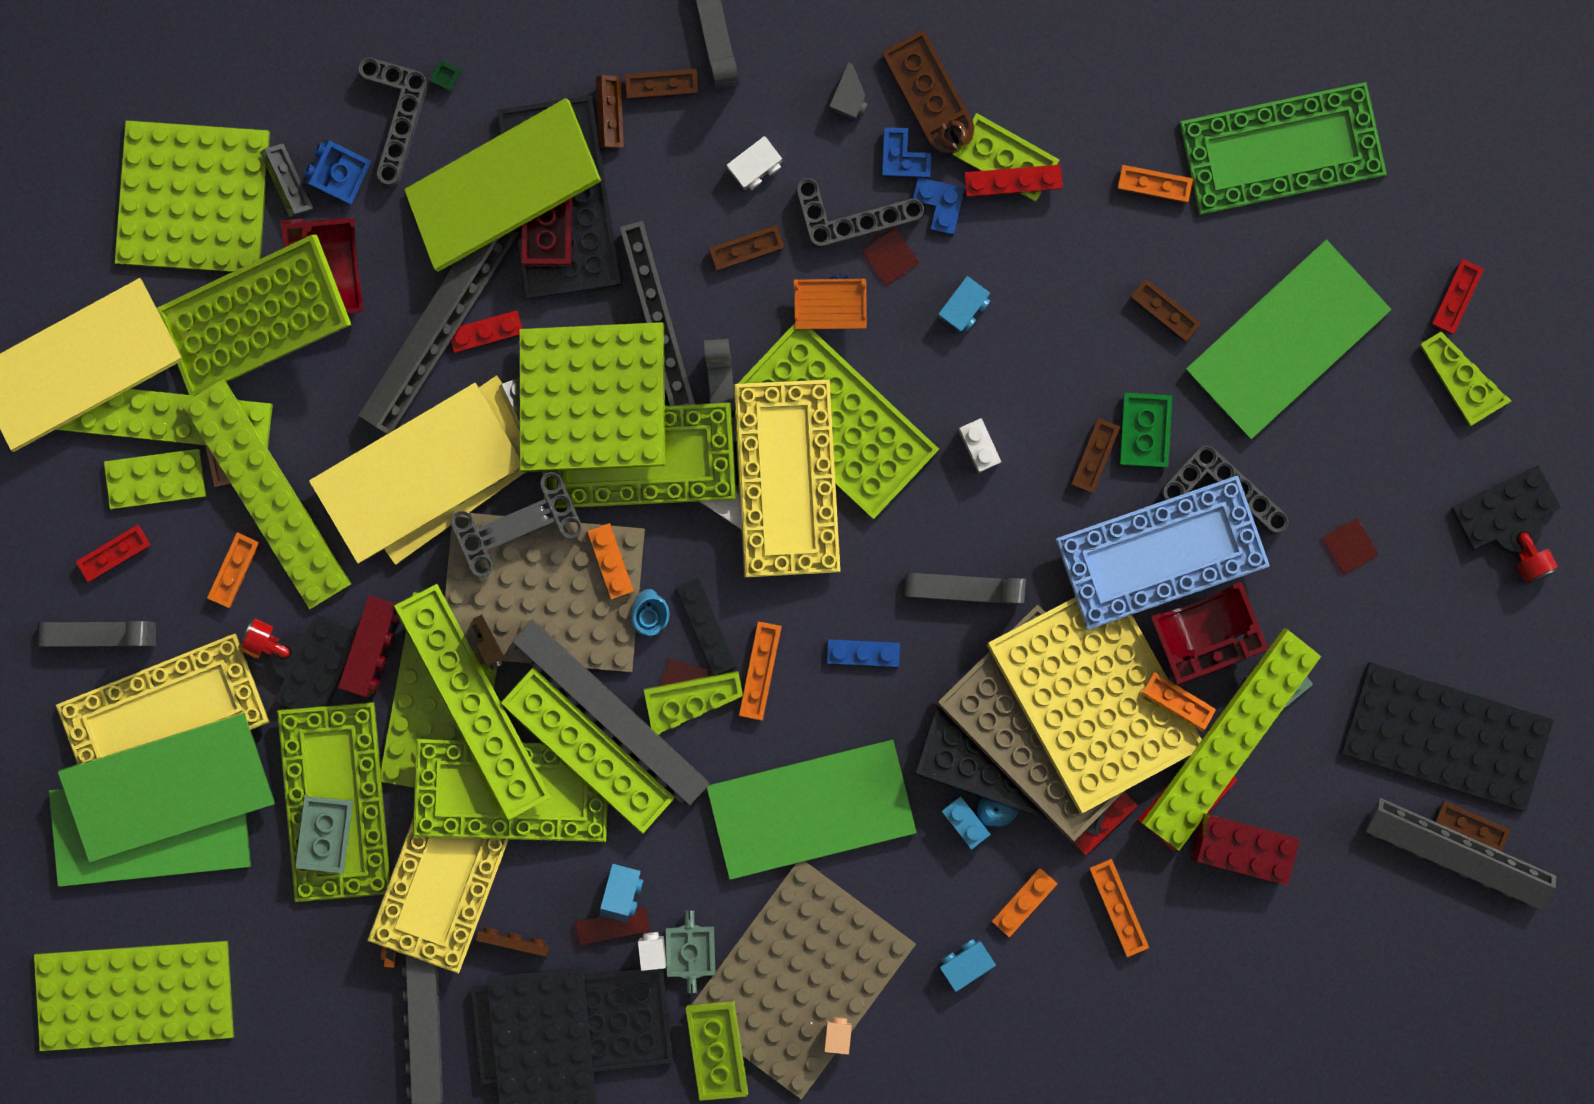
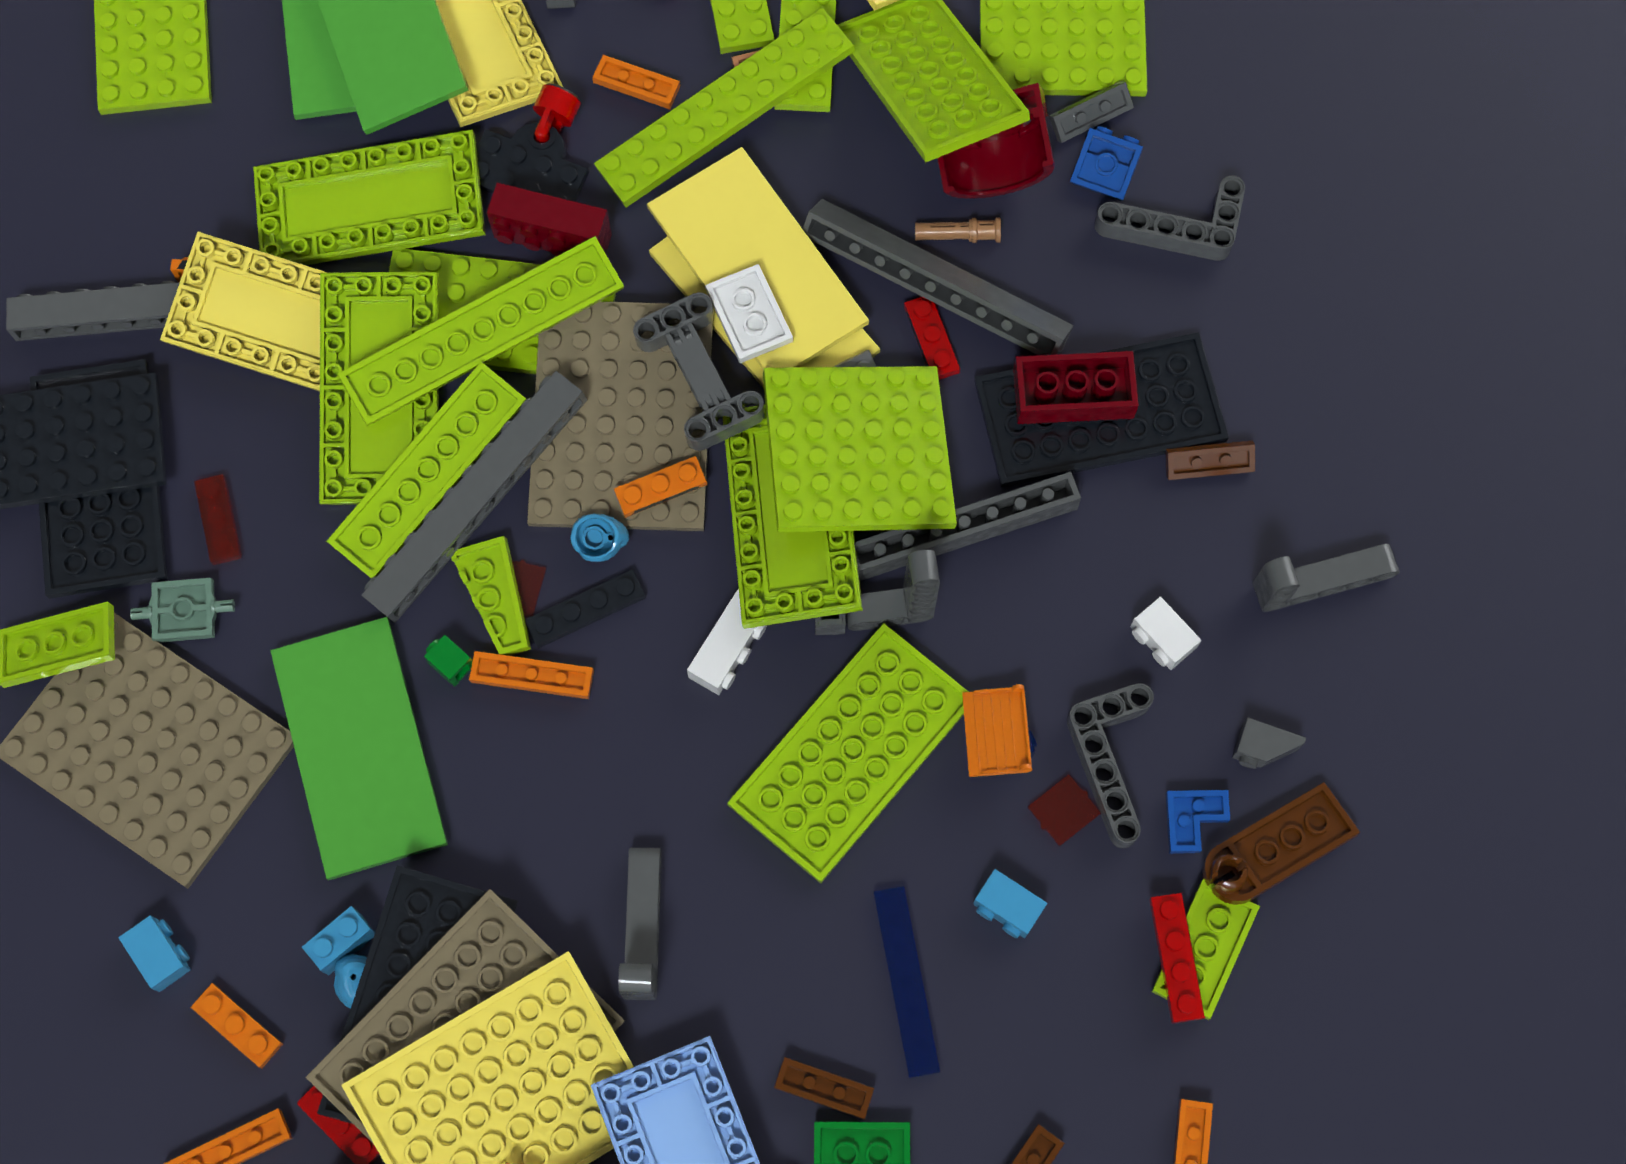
camera: 90 degrees right, 15 degrees down
(324, 834) = (328, 185): sand green plate -> none
(391, 290) = (971, 230): none -> medium nougat pin
(445, 75) = (1233, 275): dark green plate -> none
(467, 481) = (749, 313): none -> white plate
(488, 650) = (548, 346): dark brown plate -> none
(502, 185) = (1110, 333): lime tile -> none
(513, 941) = (199, 404): reddish brown plate -> none
(620, 893) = (254, 521): dark azure brick -> none
(652, 951) = (179, 558): white brick -> none
(661, 84) = (1251, 519): reddish brown plate -> none
(744, 737) = (448, 660): none -> green brick
(746, 248) = (1058, 631): reddish brown plate -> none
(786, 478) = (772, 689): light yellow tile -> none
(838, 1036) = (65, 790): light nougat brick -> none
(863, 653) = (557, 802): blue plate -> none
(945, 198) = (1144, 874): blue plate -> none
(979, 445) = (828, 933): white brick -> none
(1018, 388) = (906, 982): none -> clear blue tile

